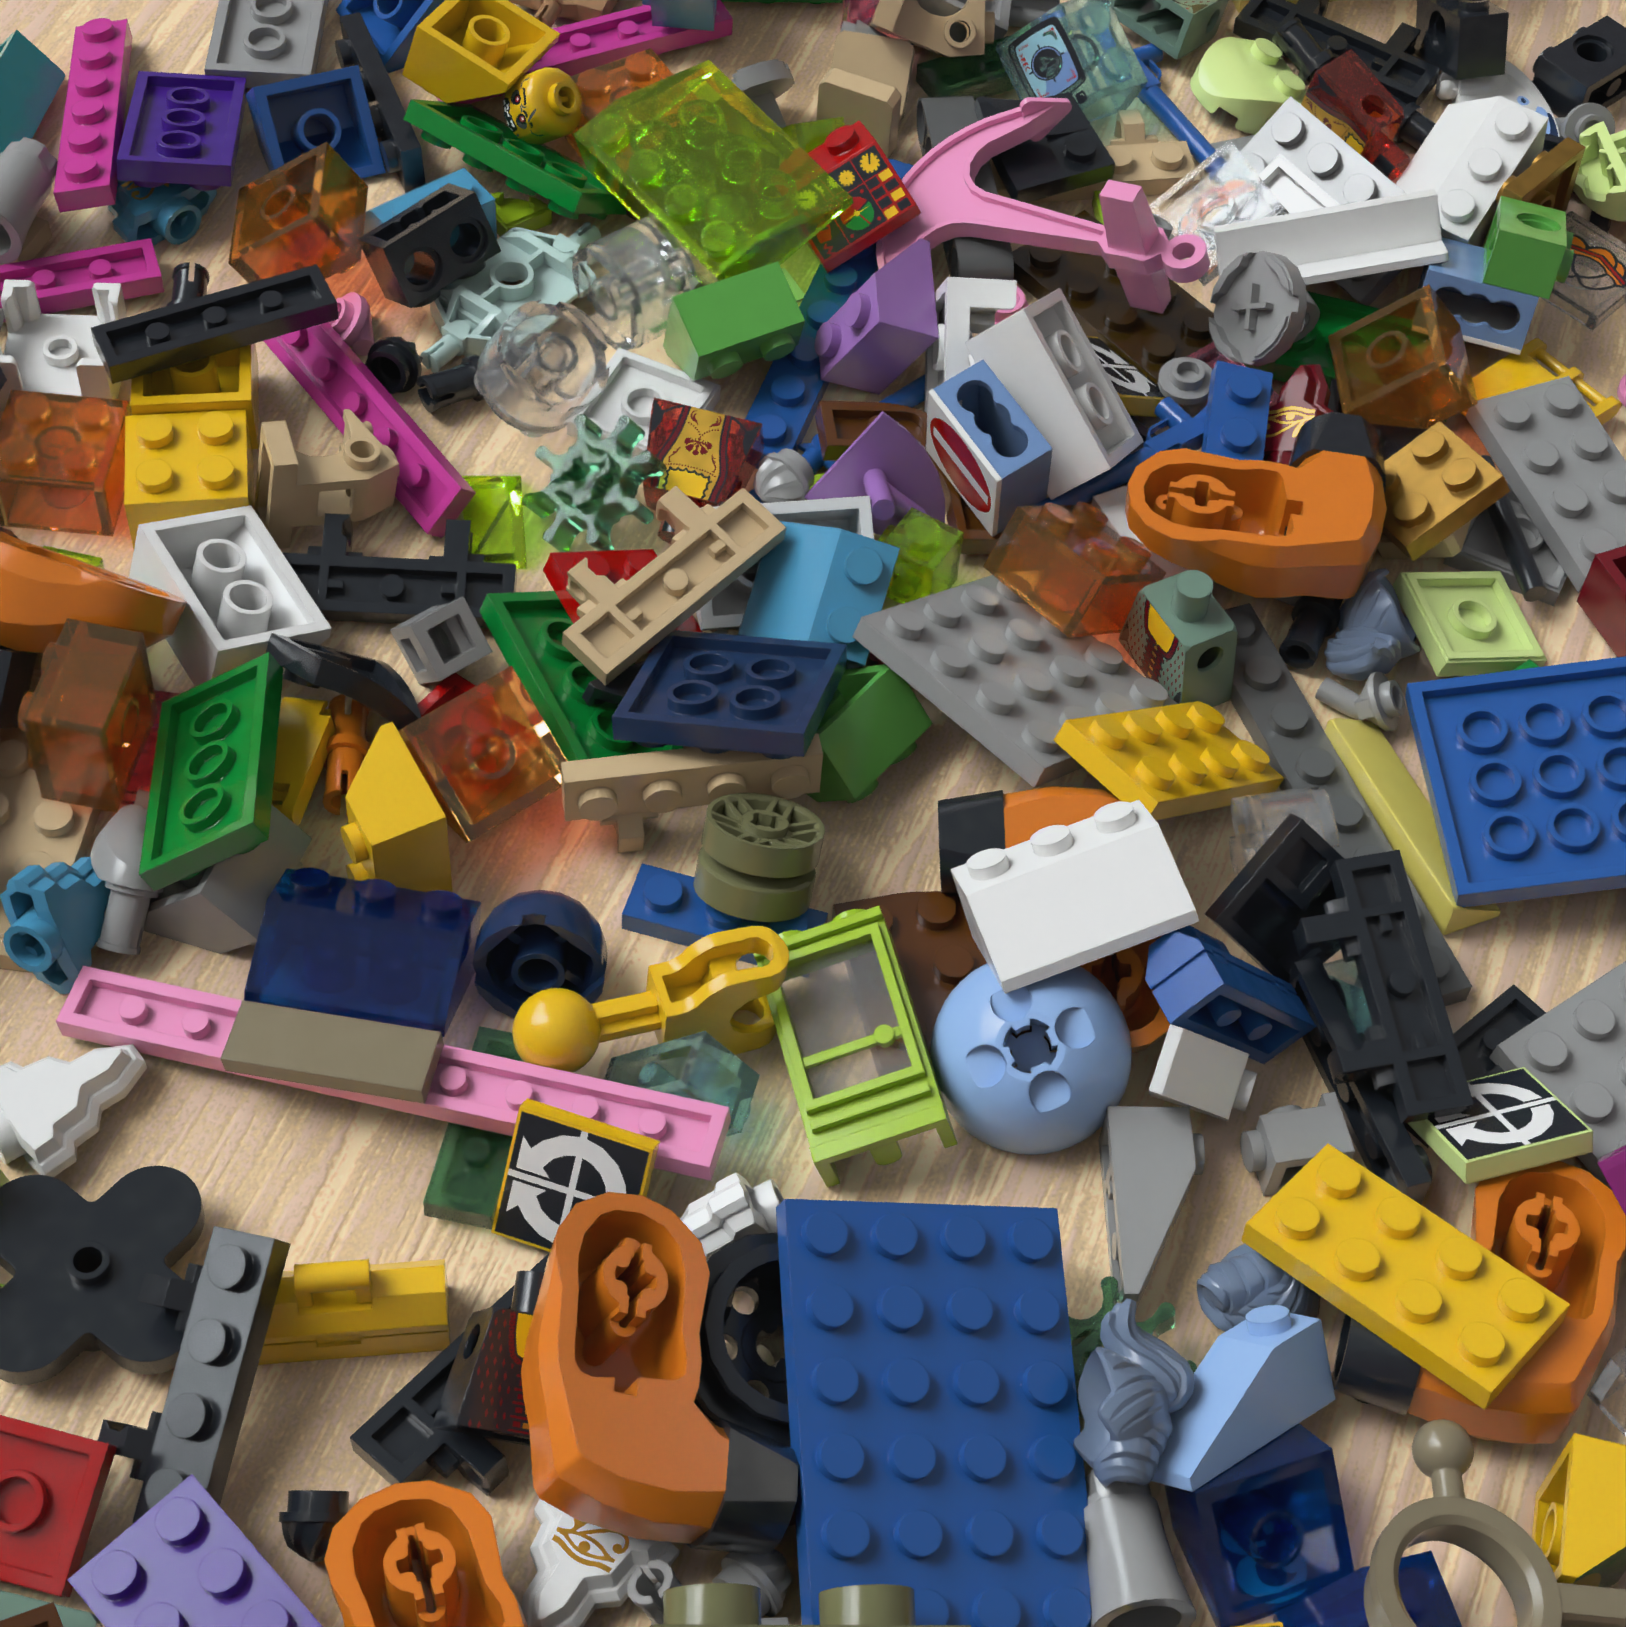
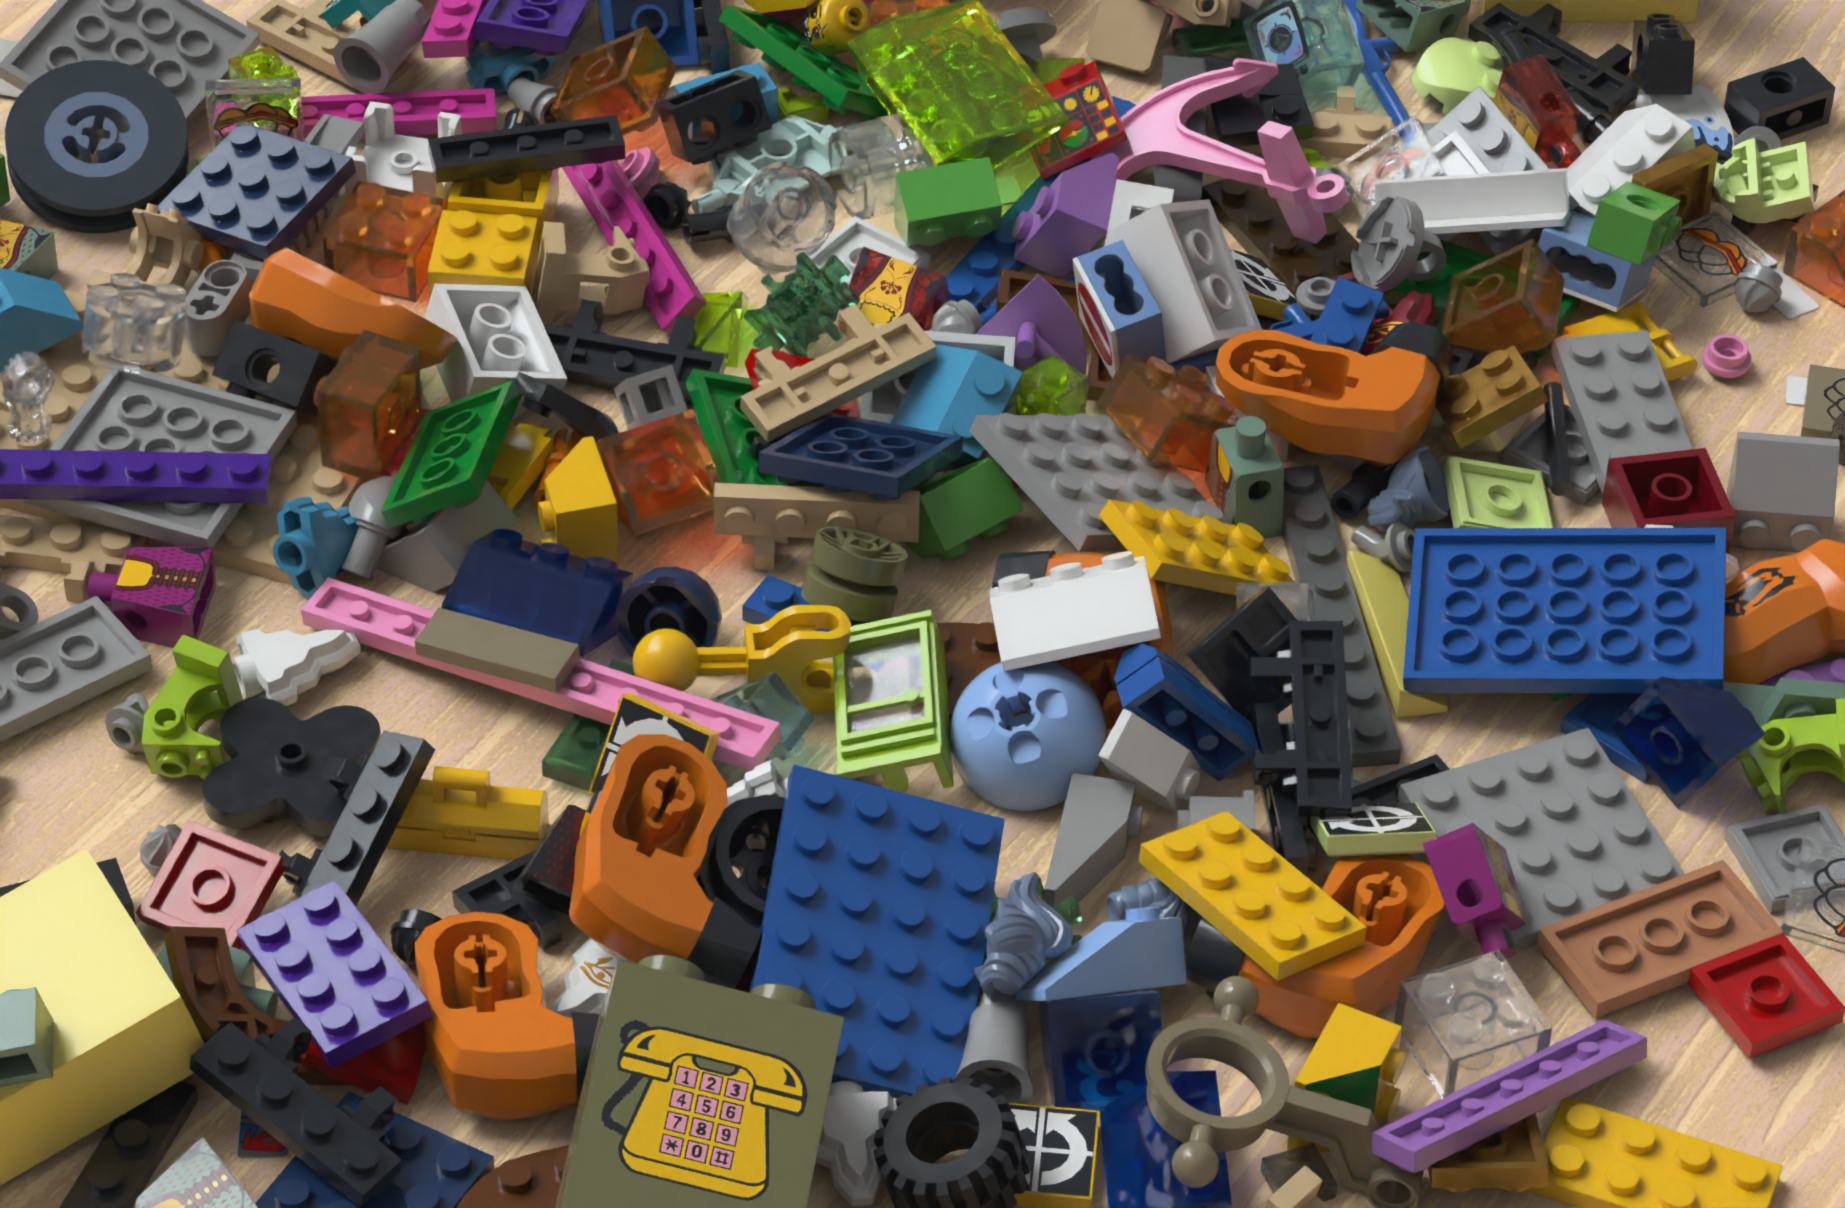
camera: 15 degrees right, 10 degrees down
(204, 246) = (534, 98): none -> light grey cone
(863, 100) = (1115, 56): tan piece -> none

